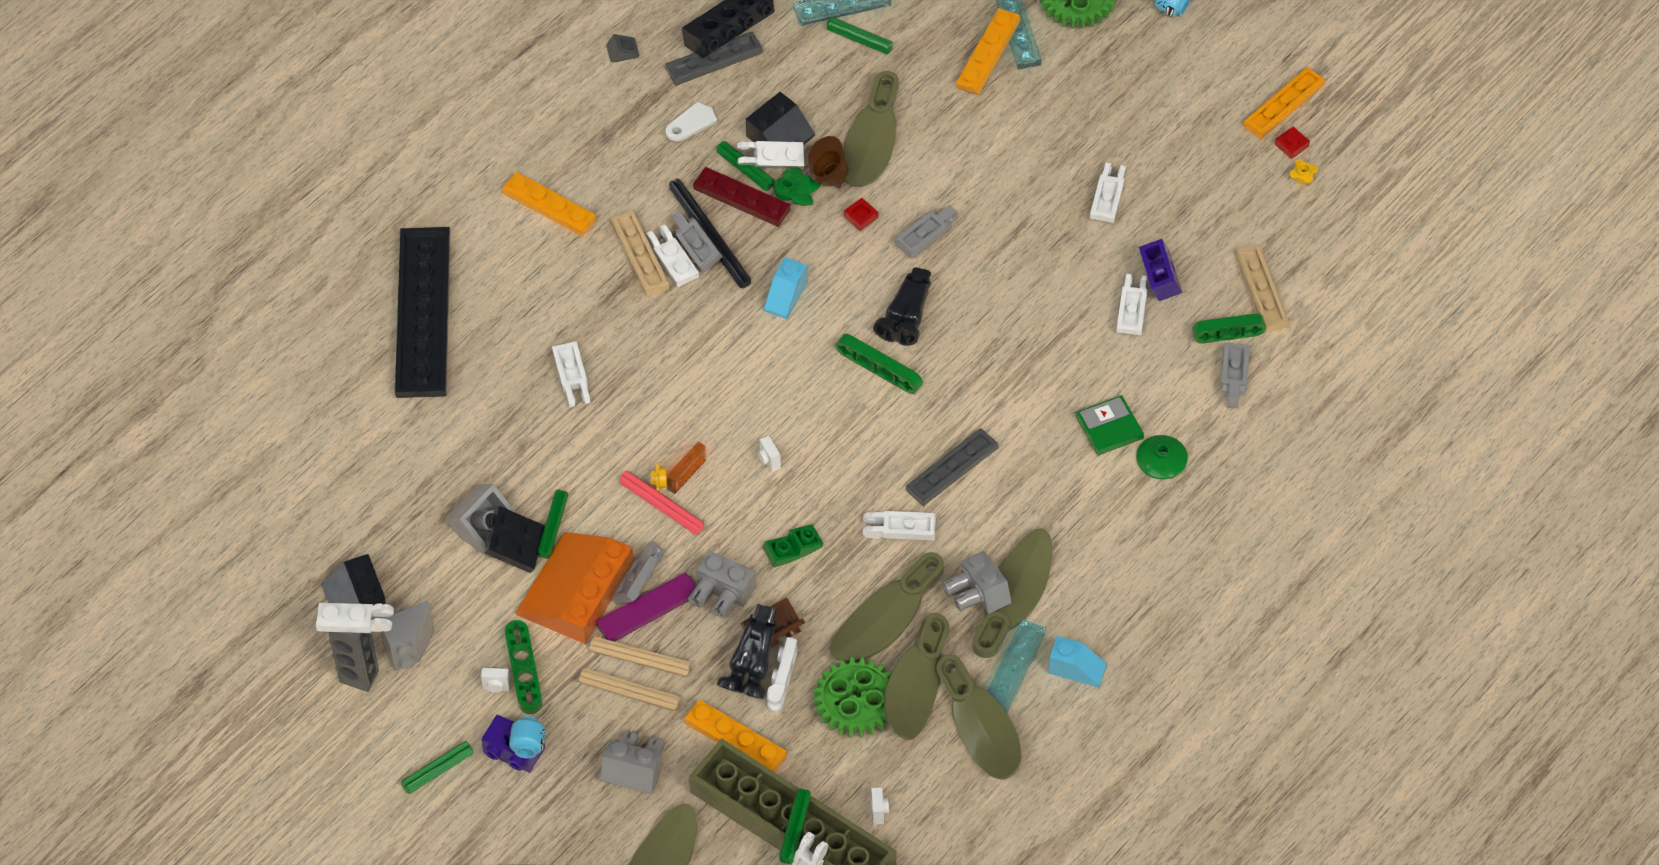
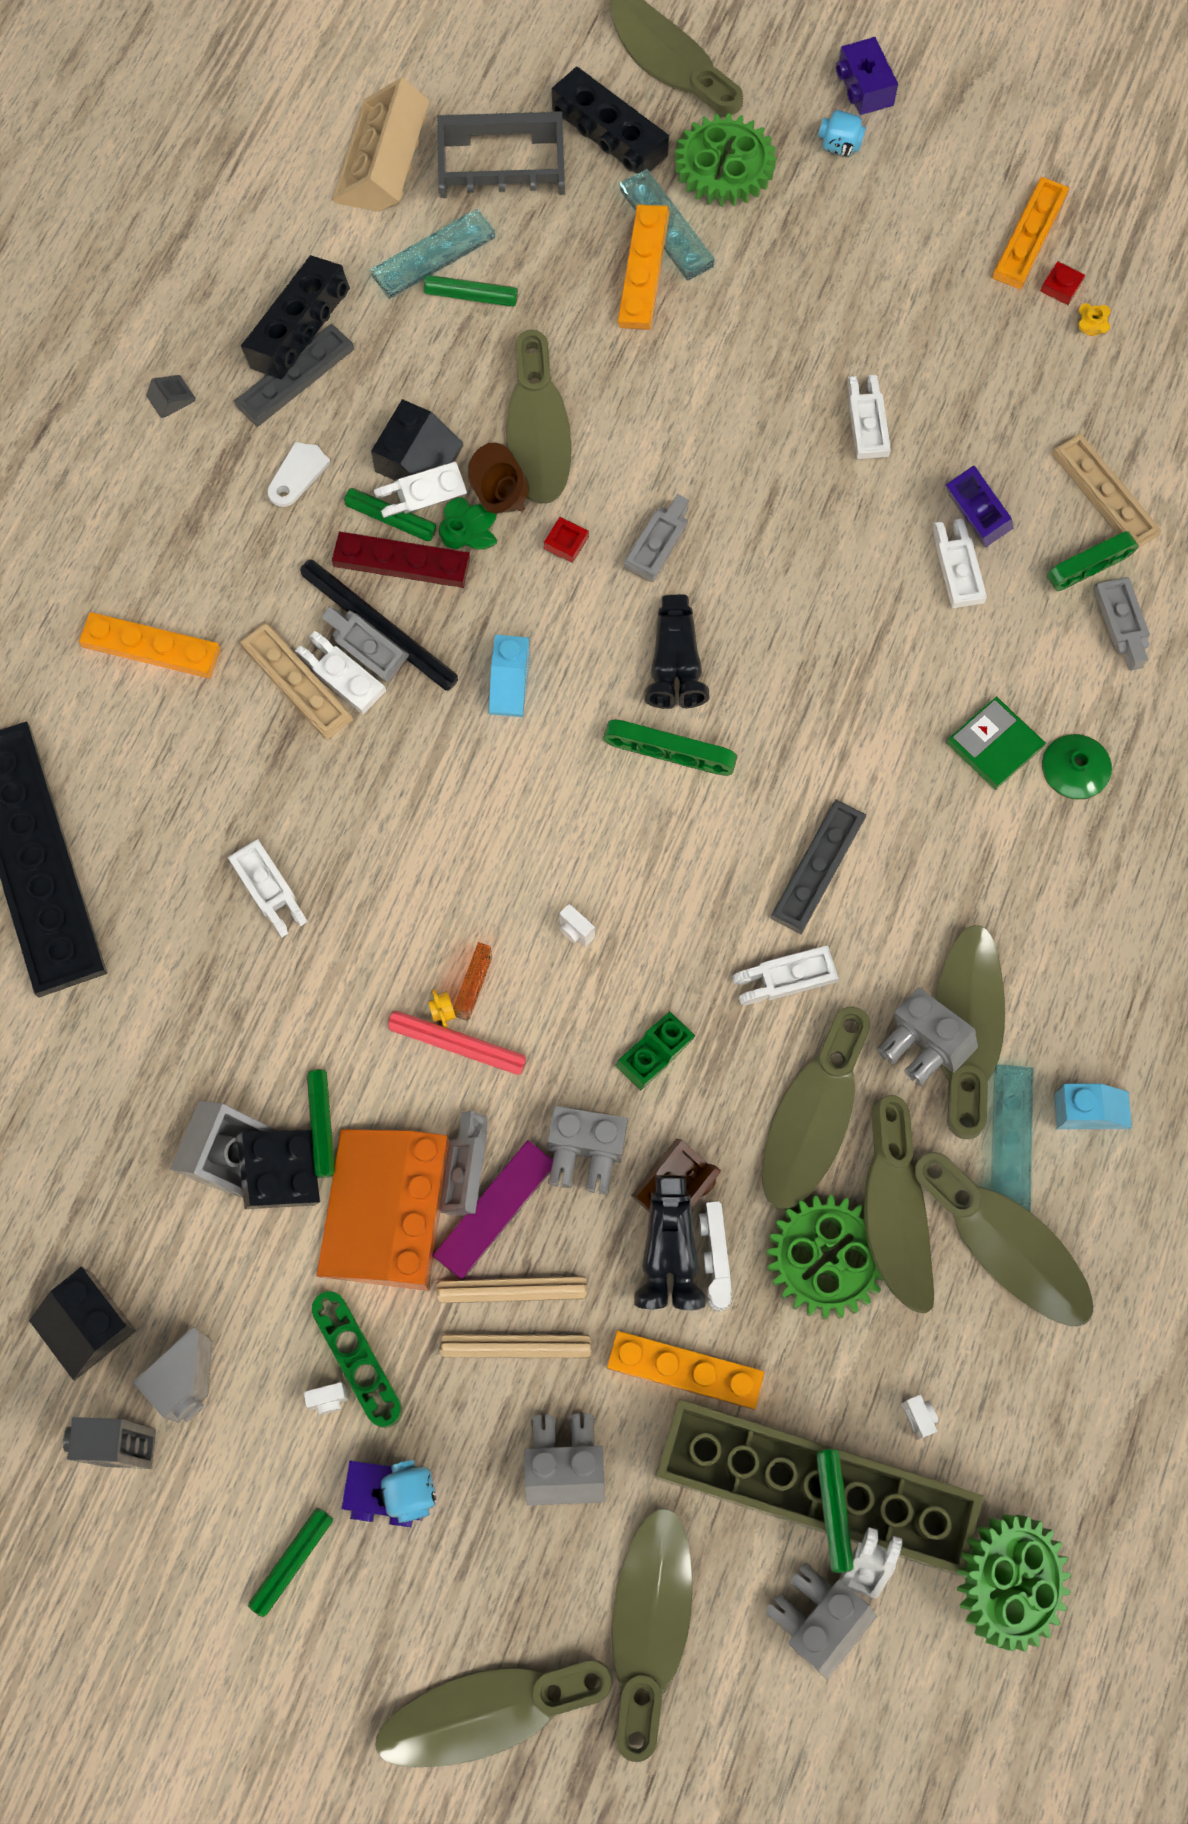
camera: 20 degrees left, 15 degrees up
(353, 617) = (96, 1433): white hinge -> none

